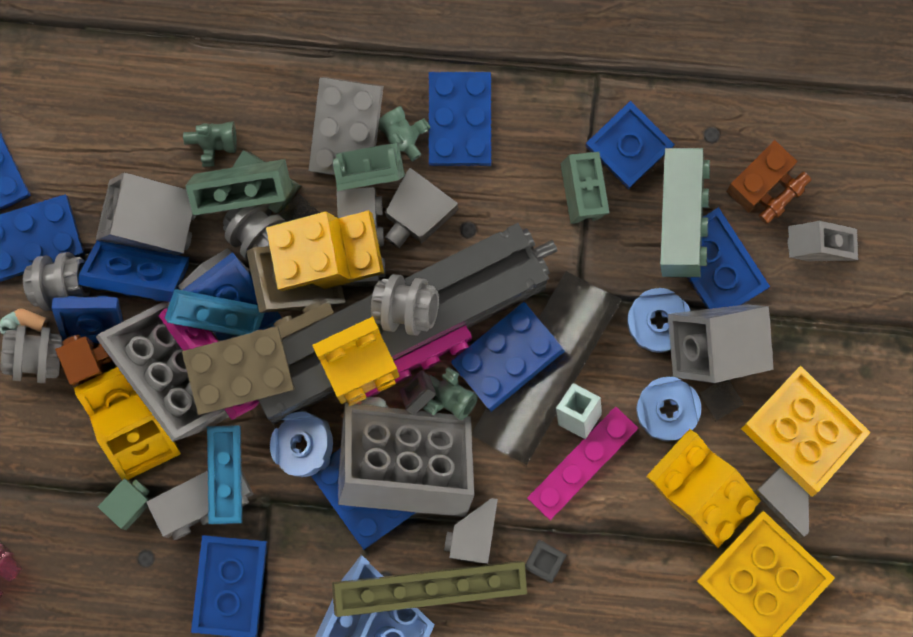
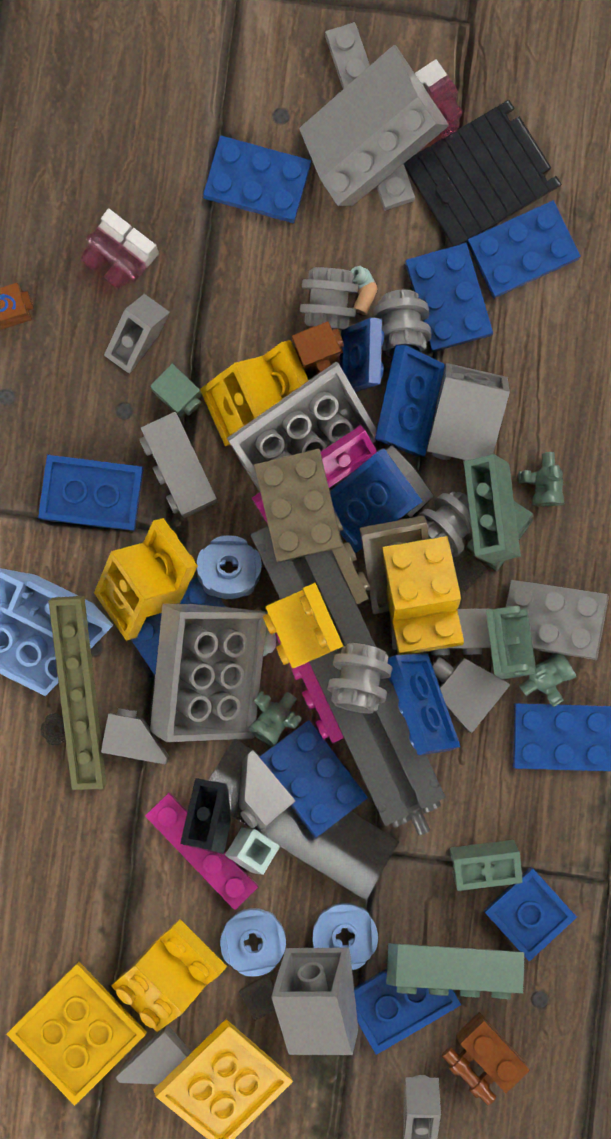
camera: 85 degrees right, 5 degrees up
(66, 547) = (136, 332): none -> light grey slope
(213, 313) = (360, 481): dark azure tile -> none
(224, 474) = (198, 489): dark azure tile -> none
(313, 525) = (144, 578): none -> yellow bracket
(417, 392) = (277, 686): dark grey tile -> none
(430, 247) = (422, 704): none -> blue plate
(475, 617) = (48, 732): none -> clear smoke plate
(521, 403) = (261, 793): none -> light grey slope
(545, 561) = (105, 809): dark grey tile -> none
(546, 453) = (207, 817): none -> black slope

